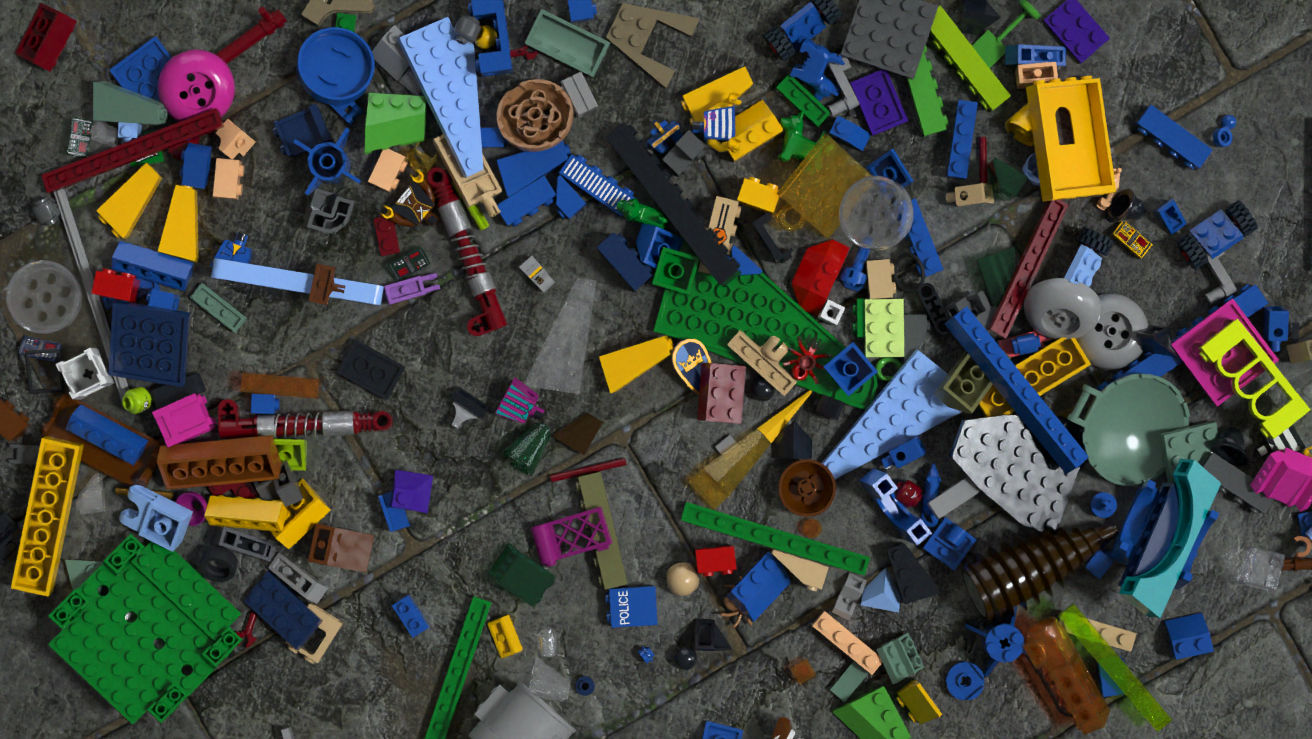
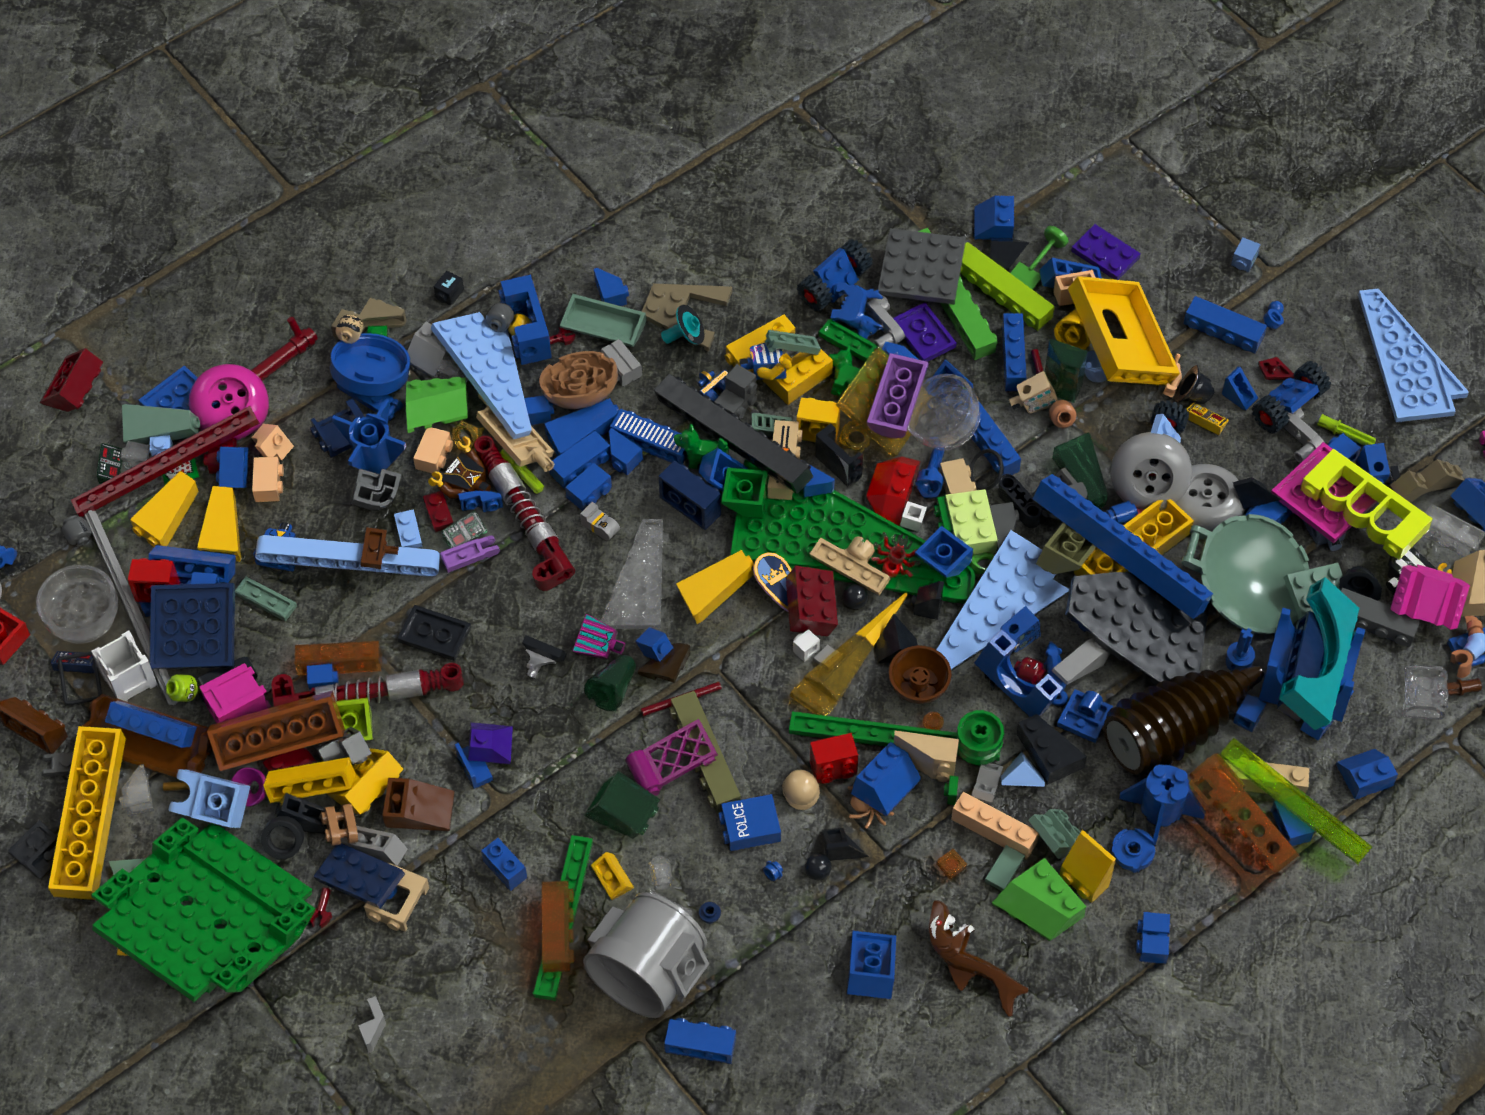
camera: 10 degrees left, 30 degrees down
(261, 554) = (333, 833): none -> medium nougat brick
(318, 27) = (349, 328): none -> tan head
(356, 252) = (408, 529): none -> light blue plate
(433, 235) = (488, 500): none -> blue slope
(449, 687) = (556, 926): none -> clear orange brick
(531, 234) = (588, 486): none -> blue brick
(571, 415) = (654, 644): none -> blue brick
(649, 68) = (688, 326): none -> teal piece
(699, 178) = (758, 418): none -> sand green slope
(709, 433) = (806, 645): none -> white plate
(746, 114) = (791, 342): none -> sand green hinge
(815, 600) = (950, 790): none -> green plate
(837, 193) = (897, 396): none -> medium lavender brick
(860, 561) = (980, 737): none -> green wheel
(994, 219) = (1062, 414): none -> nougat head
(1027, 268) = (1107, 445): dark red plate -> none
(1210, 194) = (1275, 369): none -> dark red piece
(1213, 57) = (1245, 254): none -> medium blue brick
(1260, 275) = (1339, 428): none -> lime axle

